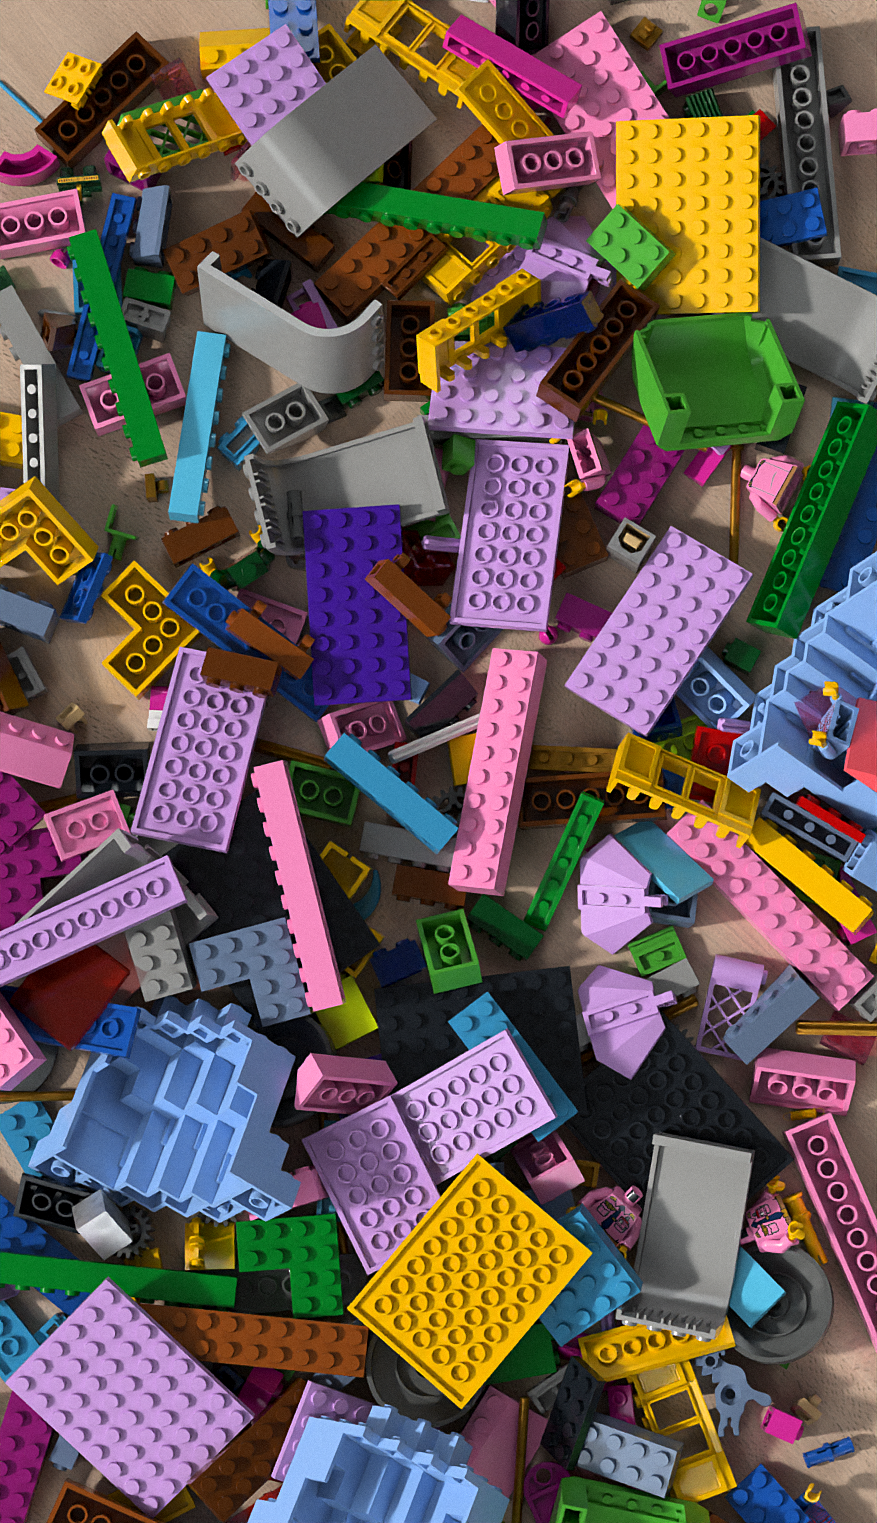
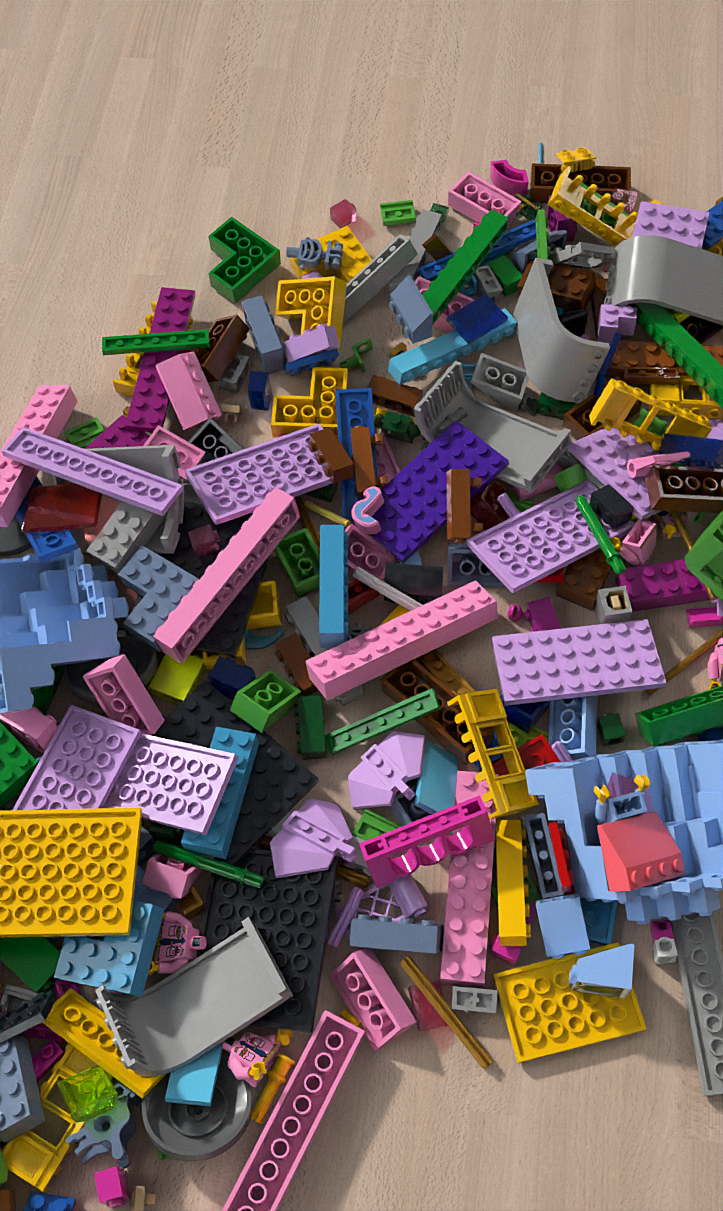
camera: 55 degrees right, 20 degrees down
(75, 574) = (311, 342): none -> lavender brick
(77, 670) = (259, 390): none -> clear blue brick
(143, 447) = (411, 311): none -> sand blue slope
(159, 222) = (542, 235): none -> bright green plate
(192, 376) = (477, 319): none -> clear blue tile
(207, 203) = (578, 255): none -> light grey slope
(232, 876) = (204, 540): none -> clear pink brick
(289, 721) = (326, 513): none -> light yellow bar
(321, 244) = (615, 319): none -> lavender brick
(327, 689) = (364, 510): none -> bright pink animal
(370, 294) = (607, 364): none -> clear blue tile
(532, 452) = (611, 506): none -> black brick
(533, 372) = (641, 466): none -> bright pink piece
(555, 492) = (604, 542): none -> green axle
(570, 1130) = (209, 864): none -> green axle
(694, 1388) = (88, 1094): none -> clear neon green slope
(712, 1045) = (345, 917): none -> lavender axle
(720, 922) = (475, 833): none -> dark pink fence

